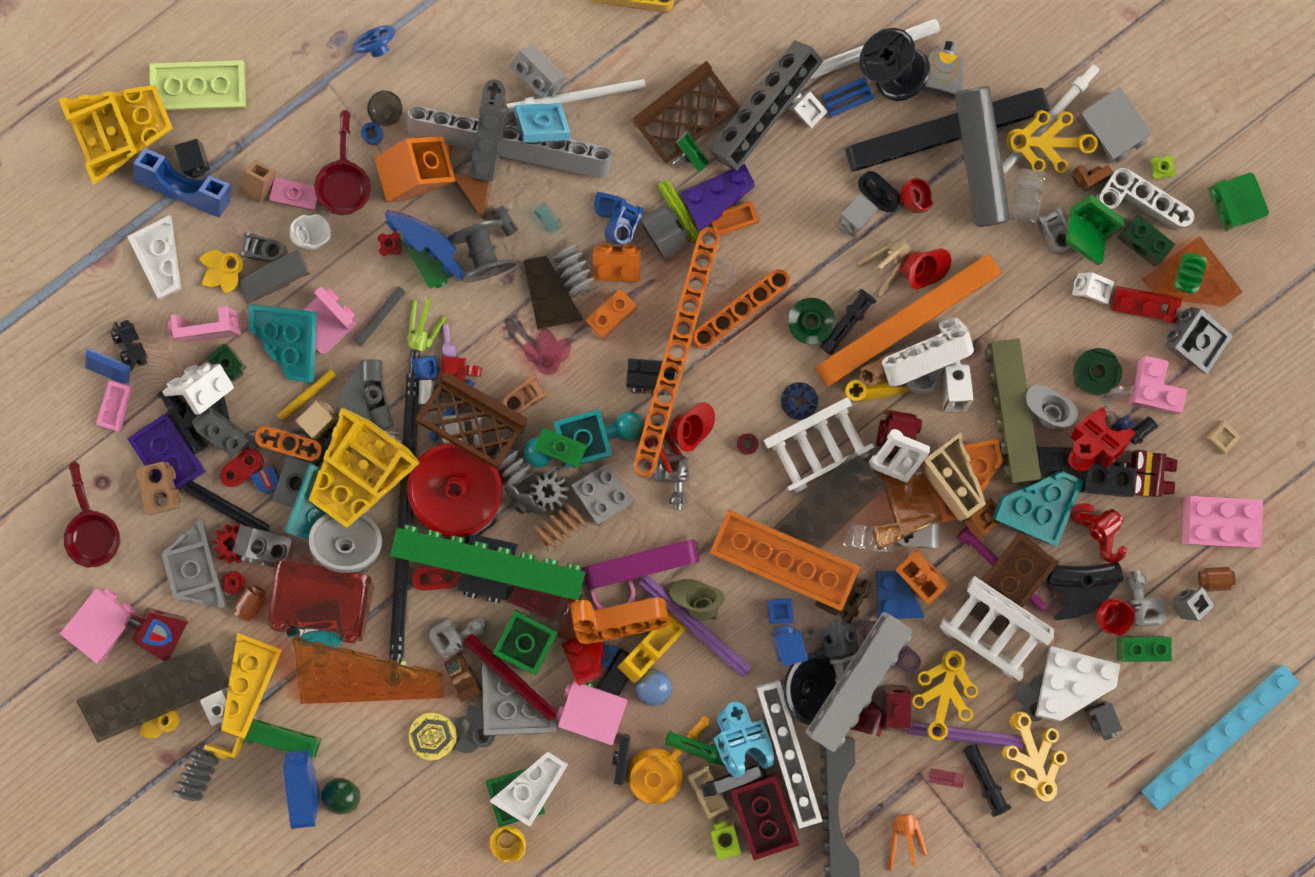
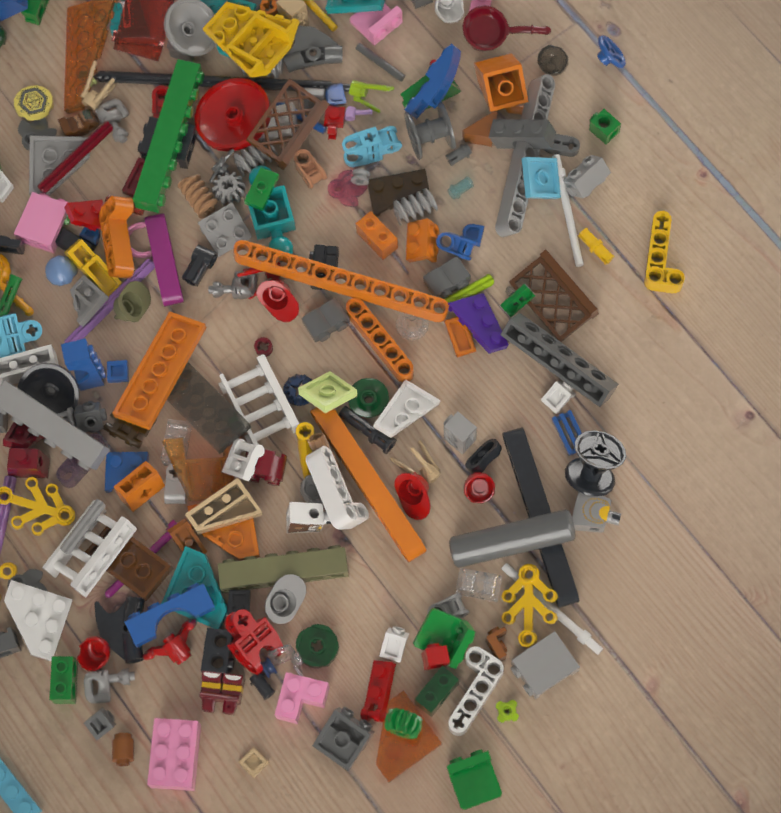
camera: 90 degrees right, 15 degrees down
(374, 141) = (530, 50): blue bush -> none
(433, 661) = (93, 98): none -> tan plant
(472, 40) = (607, 133): none -> green brick
(494, 308) = (377, 143): none -> medium azure piece
(525, 642) = (103, 168): green brick -> none
(537, 334) = (360, 177): none -> light grey bush
(623, 63) = (596, 246): none -> yellow pin
(643, 520) = (201, 261): none -> black piece
(692, 652) = (87, 299): none -> light grey wing
(717, 372) = (325, 320): none -> dark grey brick
(809, 365) = (327, 392): none -> yellowish green plate
(825, 279) = (405, 408): none -> white wing
(853, 56) = (621, 471): white axle -> none
(974, 637) = (82, 527): none -> light grey axle
(1061, 506) = (144, 626): none -> blue arch
(1114, 240) = (435, 656): none -> red plate

